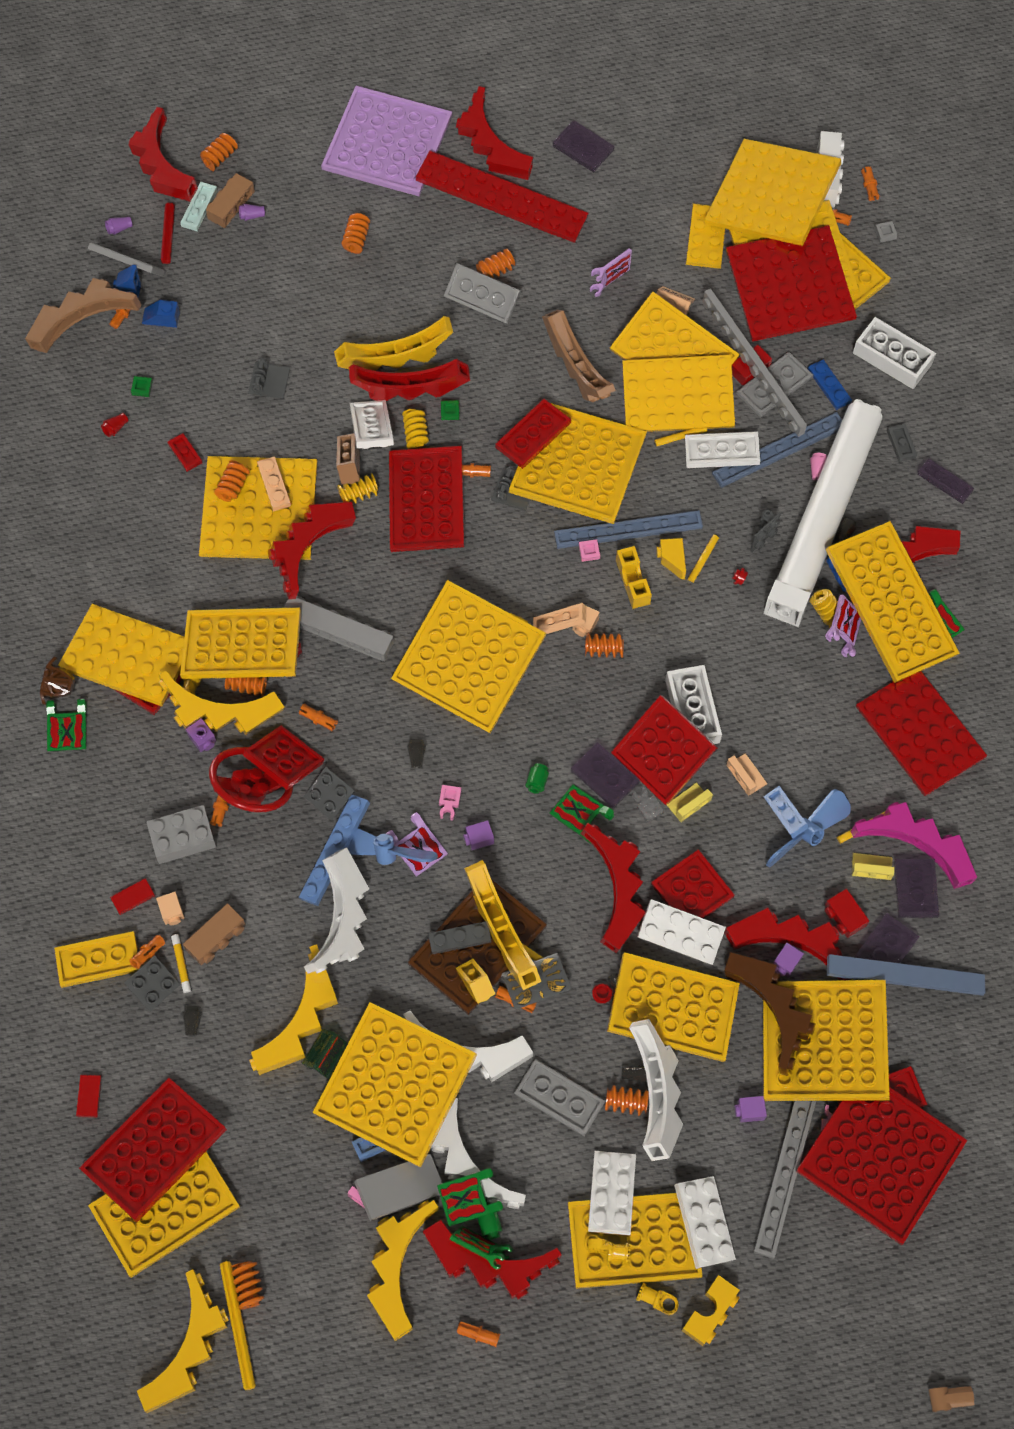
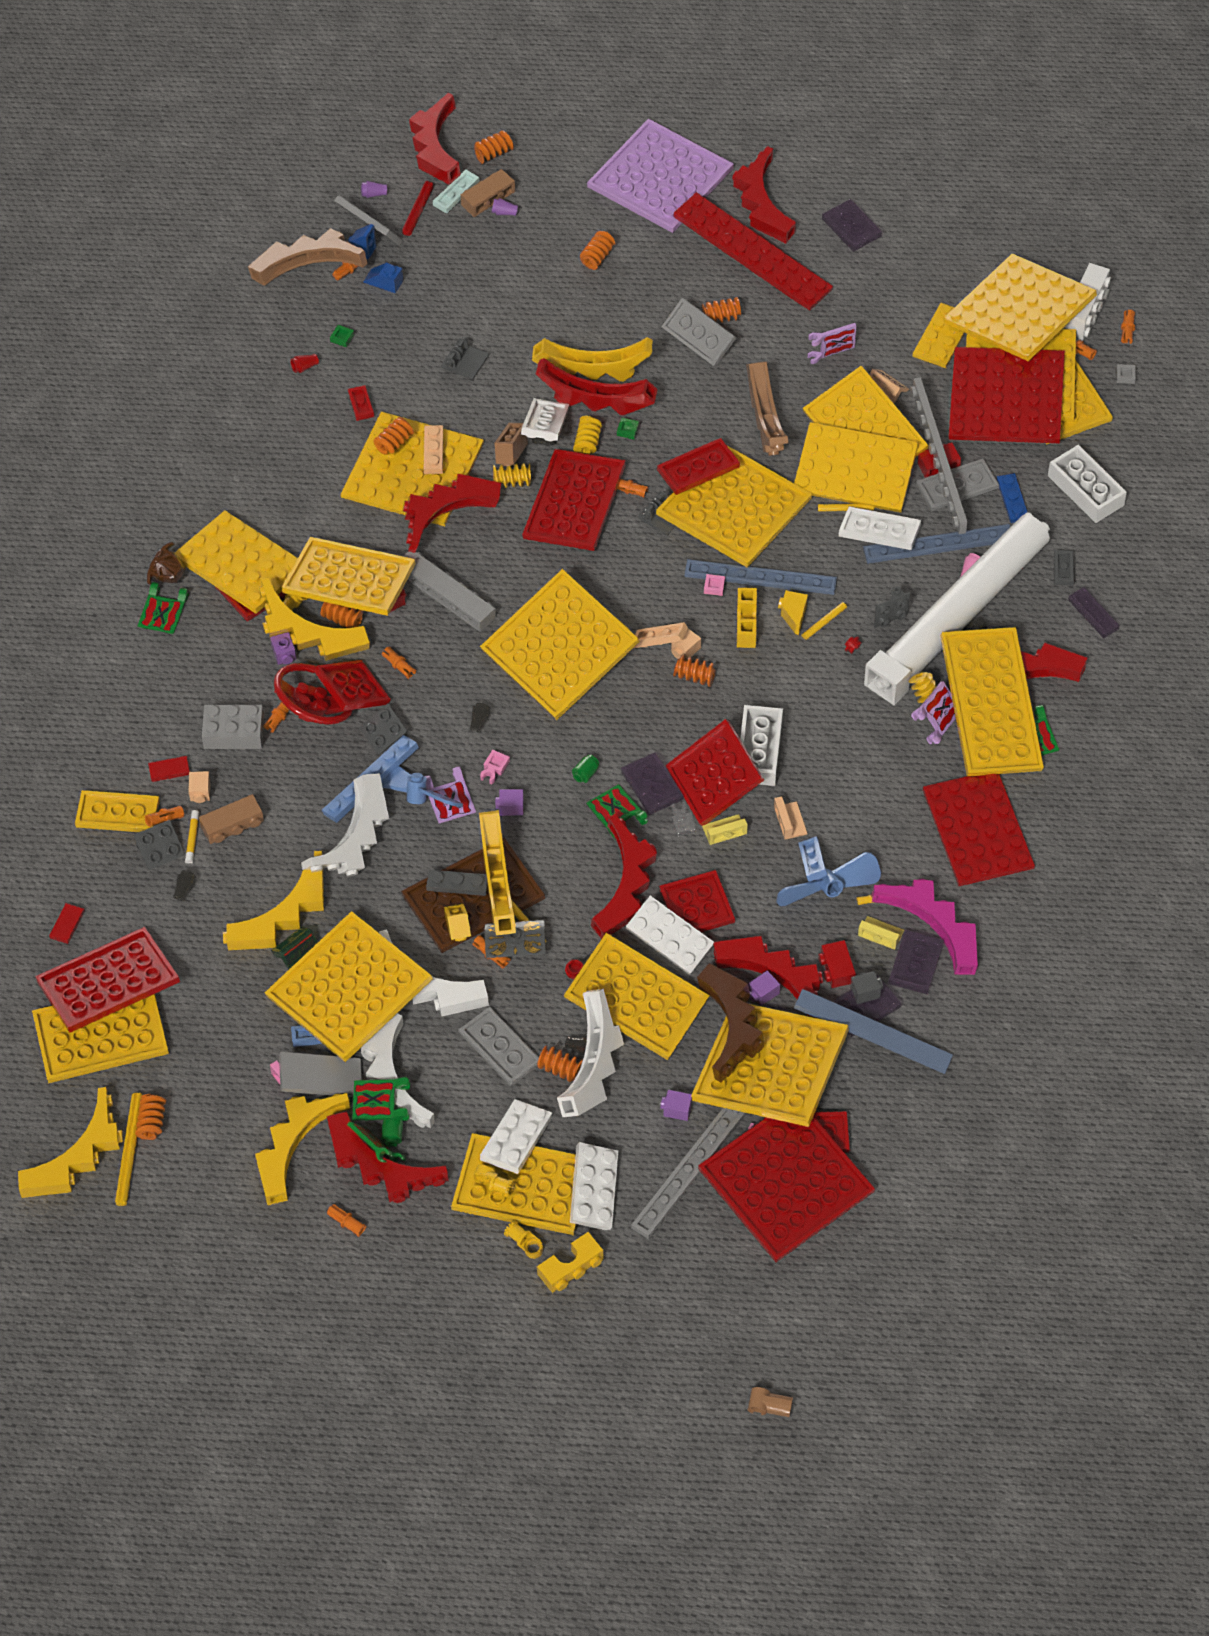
camera: 20 degrees right, 10 degrees down
(884, 931) = (866, 987): none -> dark grey brick

